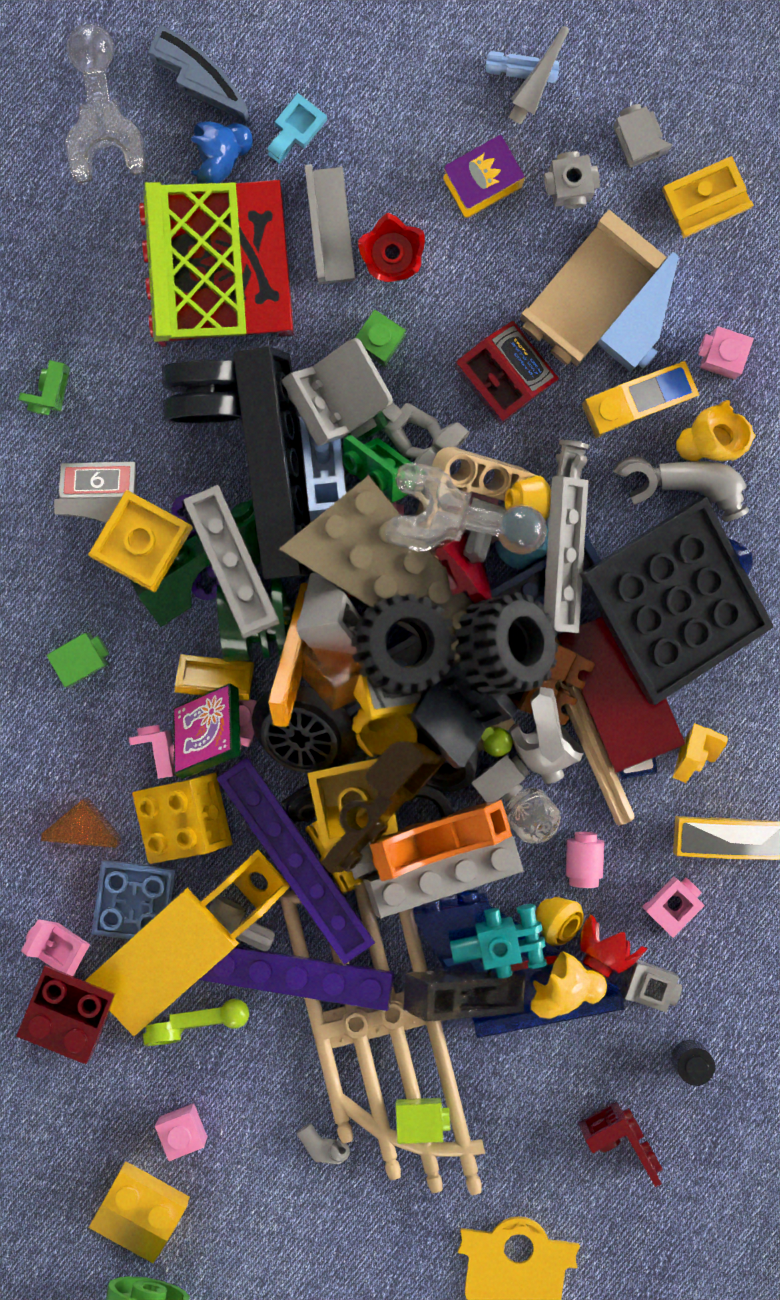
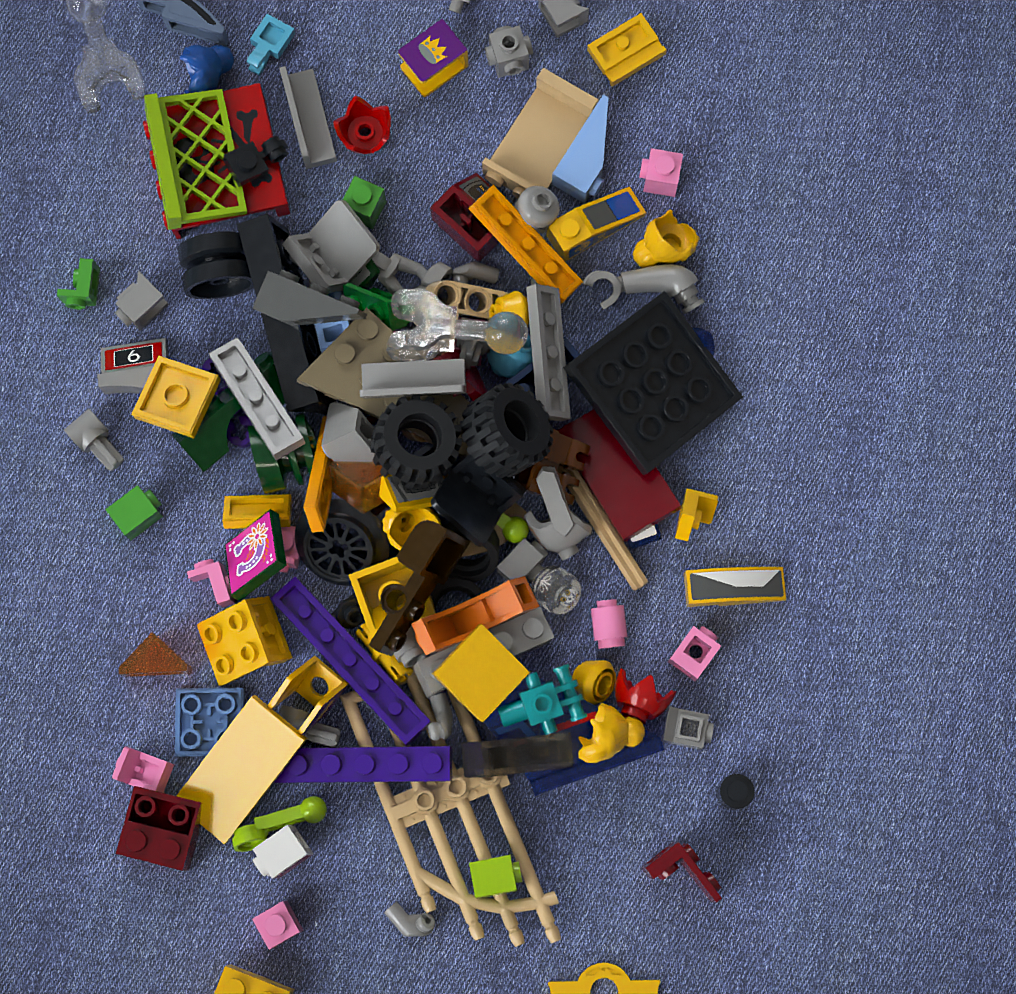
camera: 10 degrees left, 10 degrees down
(37, 562) = (92, 436): none -> light grey axle
(110, 419) = (140, 303): none -> light grey window
(195, 1060) = (281, 852): none -> white brick
(255, 279) = (249, 164): none -> black plate
(287, 460) = (298, 305): none -> dark grey slope
(390, 937) = (443, 716): none -> light grey arm
(410, 572) = (413, 378): none -> light grey panel
(438, 904) = (480, 673): none -> yellow tile
(494, 436) = (475, 270): none -> light grey arm
(557, 419) = (524, 243): none -> light orange tile
(575, 380) = (538, 207): none -> light grey head

